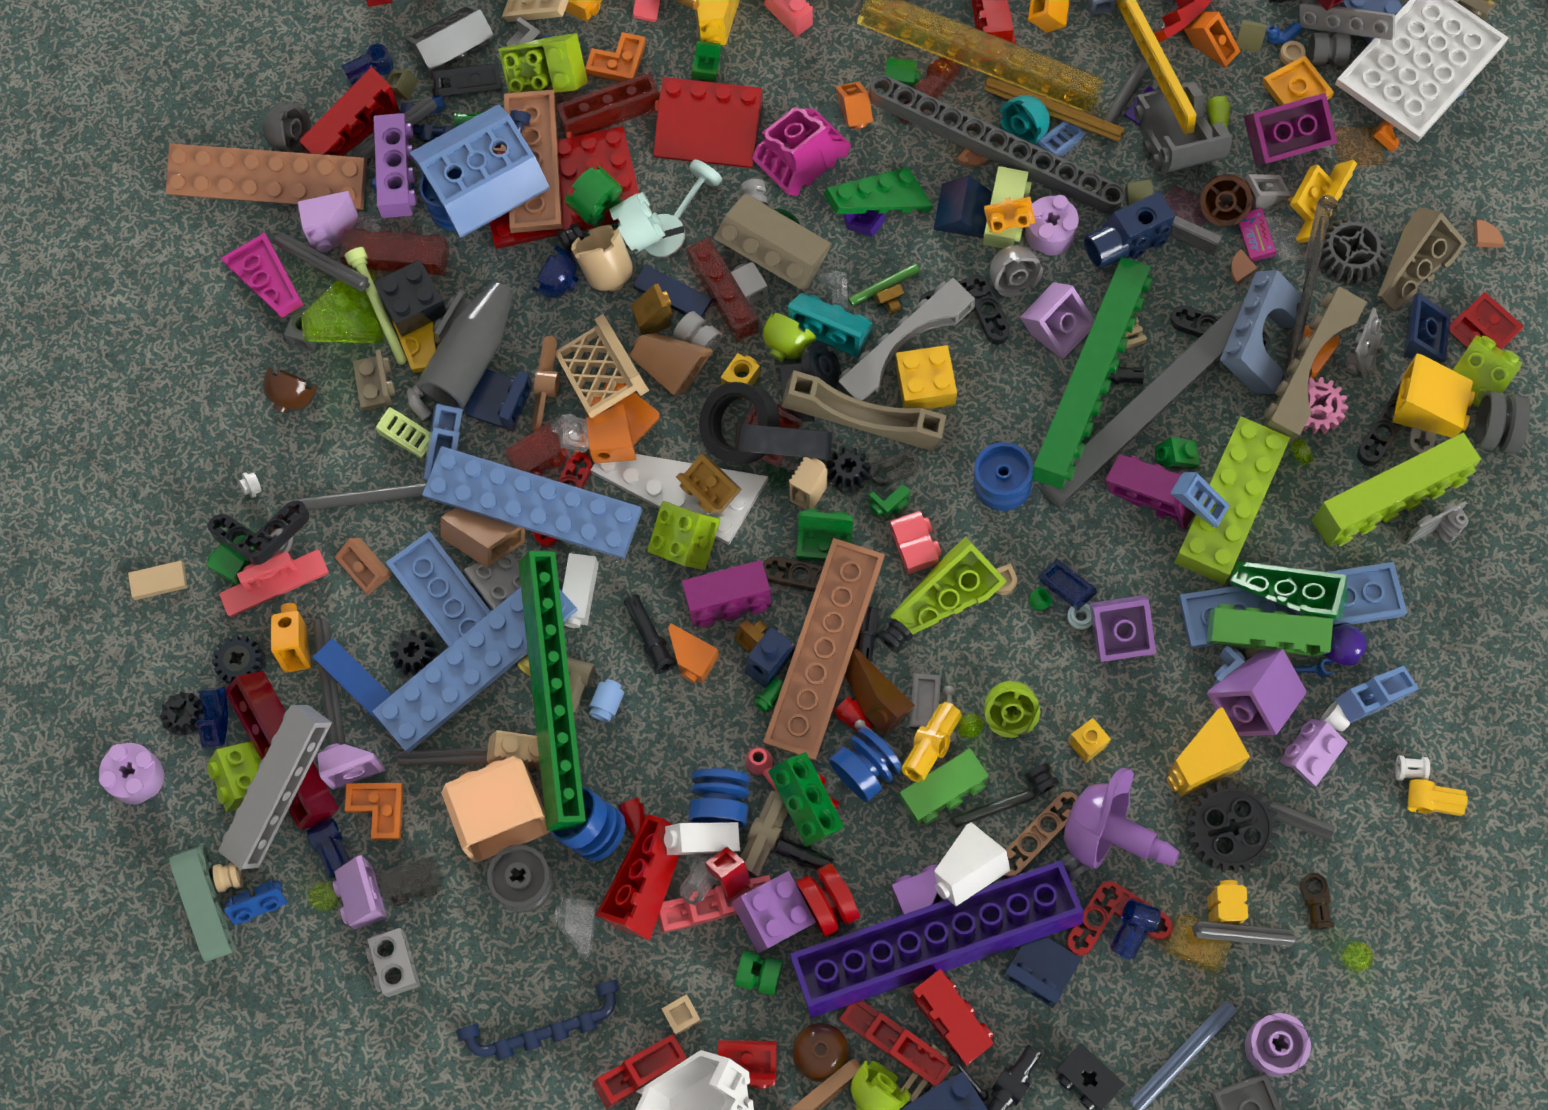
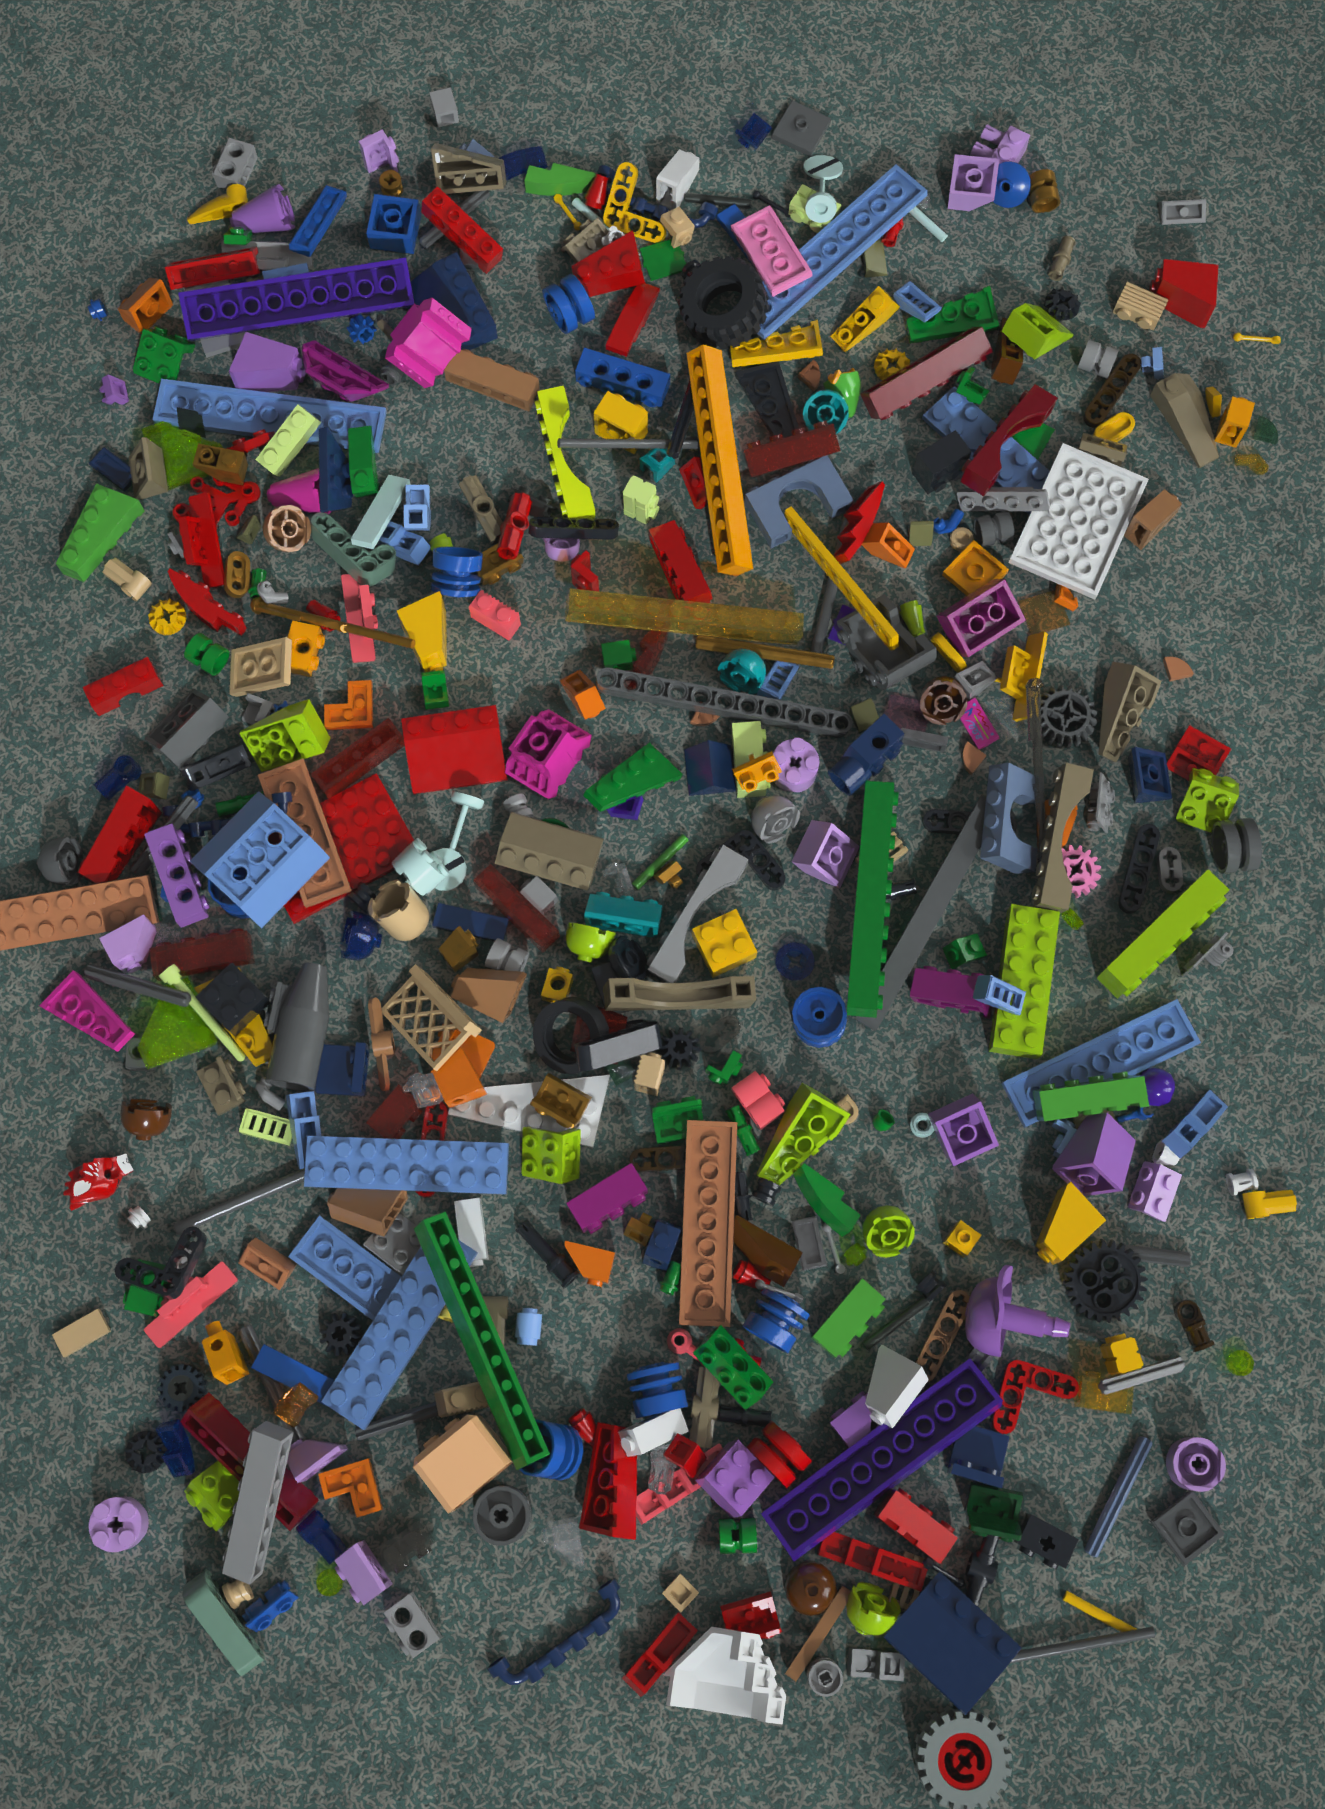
camera: 20 degrees left, 5 degrees up
(215, 434) = (89, 1180): none -> red piece
(345, 707) = (294, 1404): none -> clear orange panel
(594, 195) = (374, 853): green brick -> none
(890, 569) = (743, 1130): none -> green pin
(931, 742) = (827, 1282): yellow piece -> none
(955, 659) = (826, 1200): none -> green slope
(996, 407) = (794, 950): none -> clear blue gear
(1041, 1028) = (994, 1511): none -> dark green bracket
(1067, 584) = (903, 1100): clear blue tile -> none
(1137, 922) = (1048, 1391): clear blue piece -> none
(1245, 155) = (948, 652): none -> yellow tile
(1299, 589) = (1106, 1053): green wedge -> none
(1433, 398) = (1173, 840): yellow slope -> none
(1501, 79) = (1152, 519): none -> medium nougat slope

